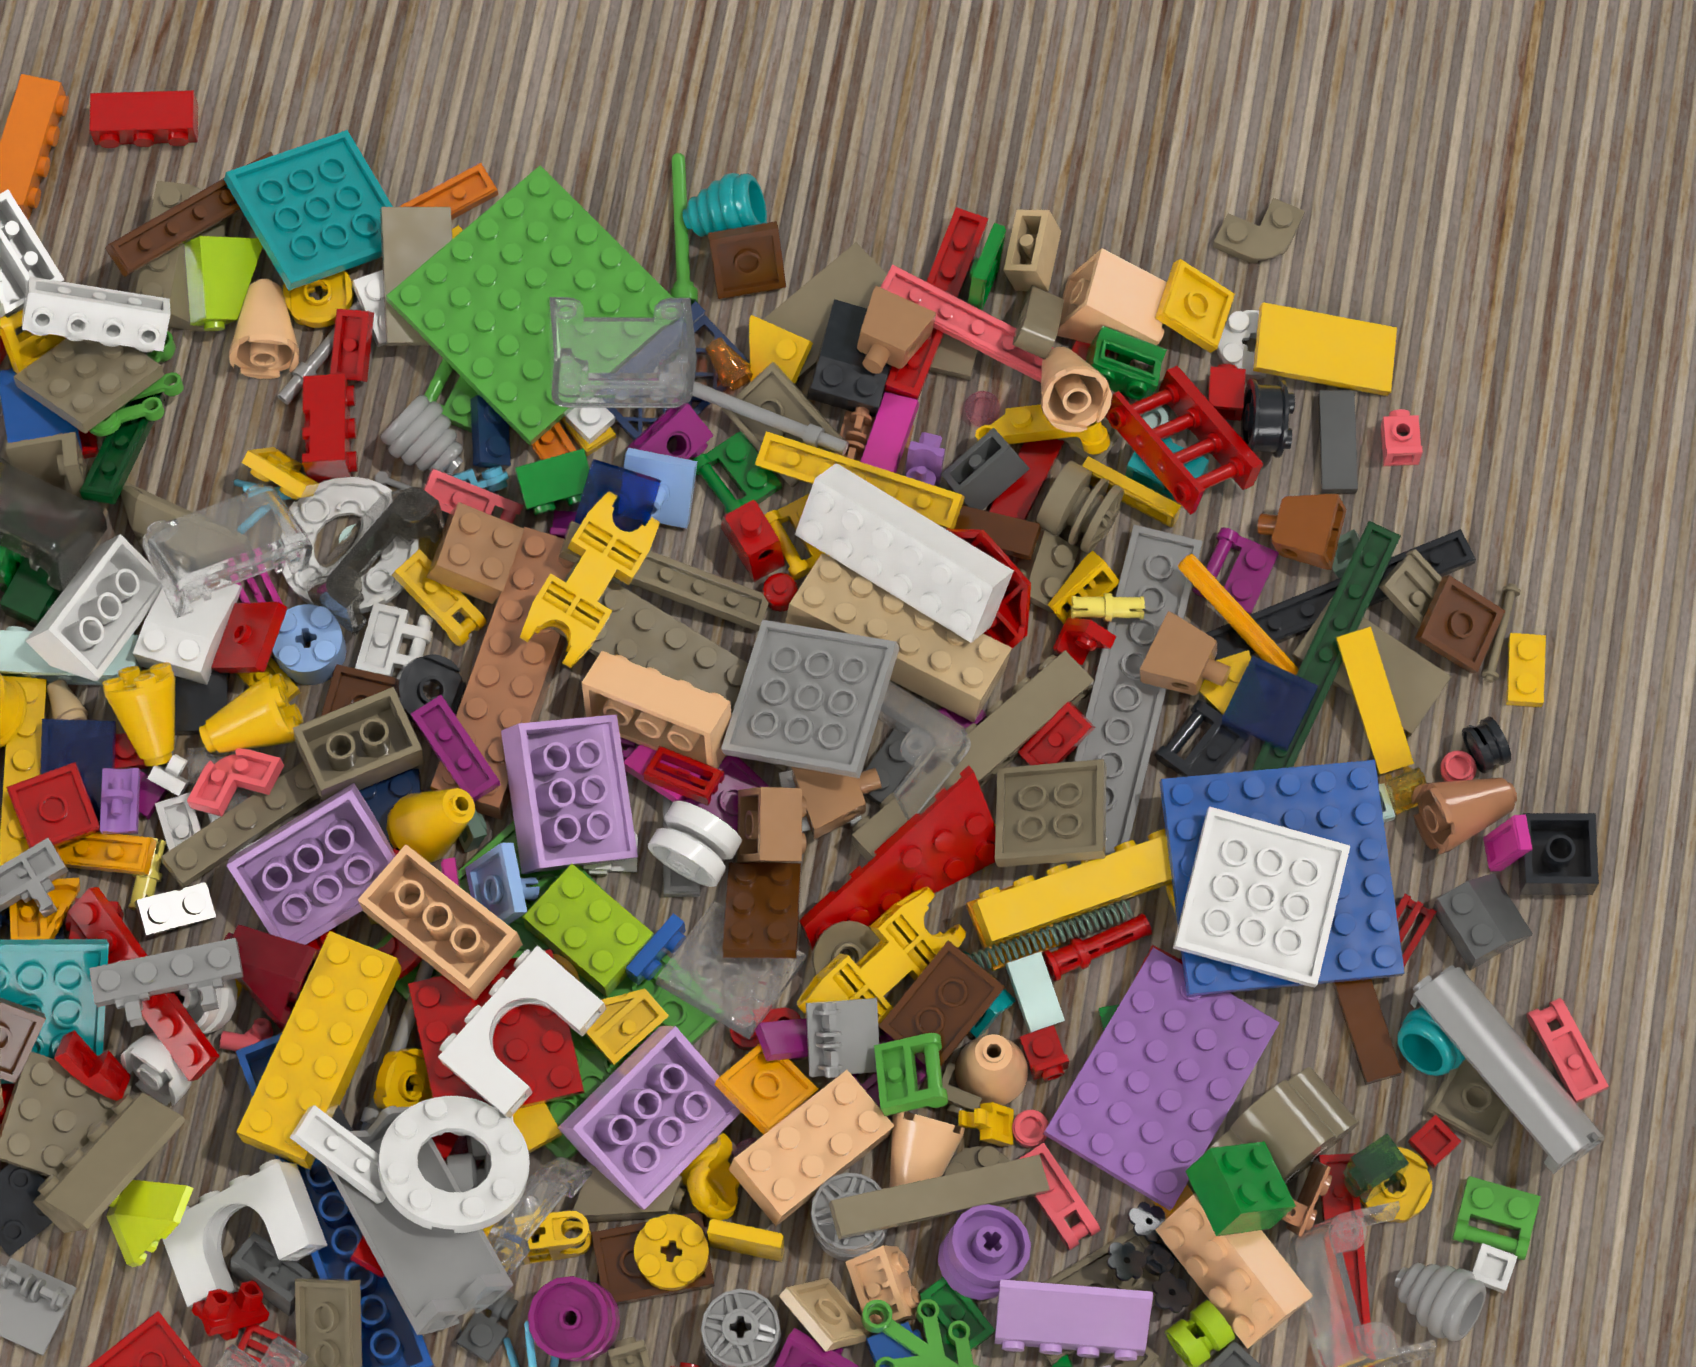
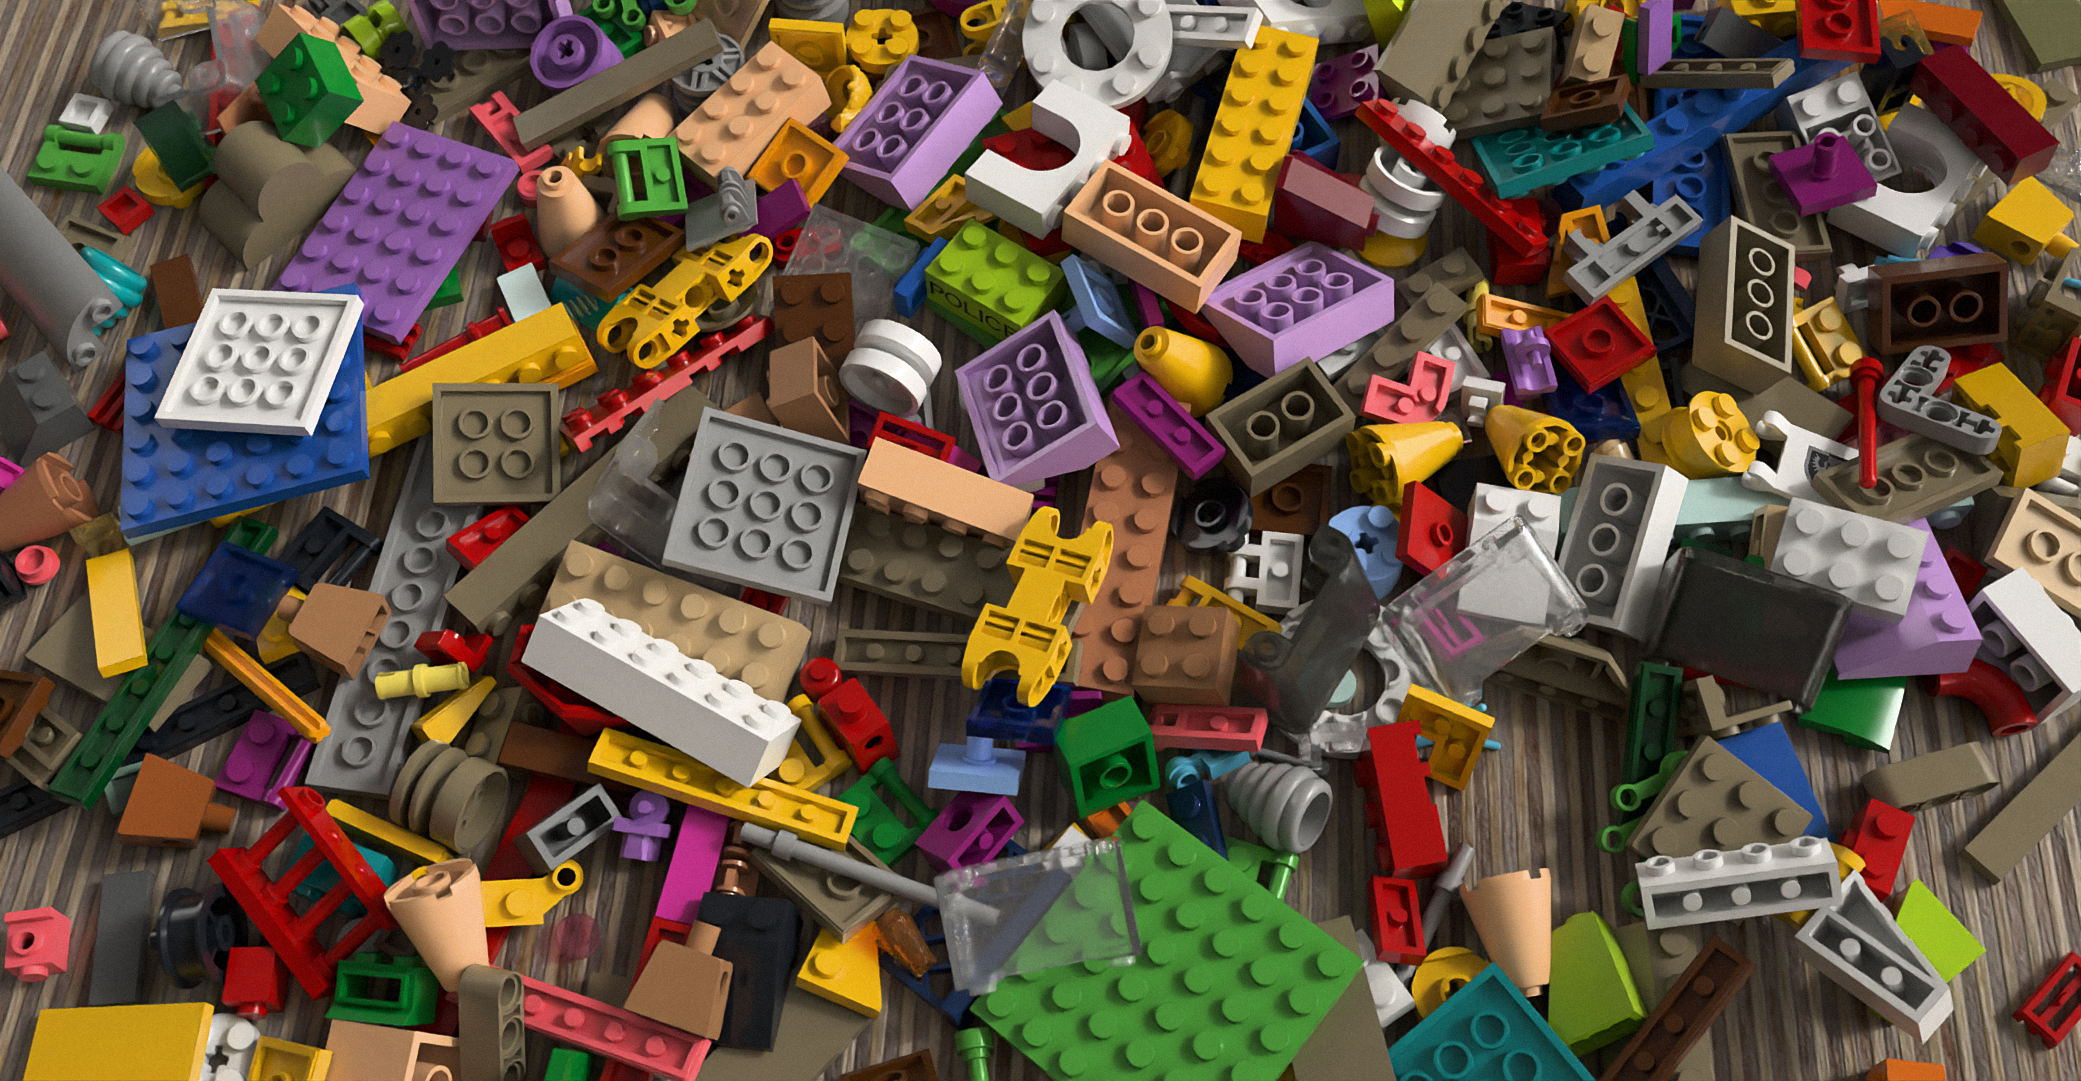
camera: 175 degrees right, 10 degrees down
(99, 1072) = (1483, 118): red slope -> none
(194, 968) = (1454, 156): light grey hinge -> none
(203, 1148) = (1347, 82): none -> magenta bracket
(372, 465) = (1335, 736): none -> clear bracket

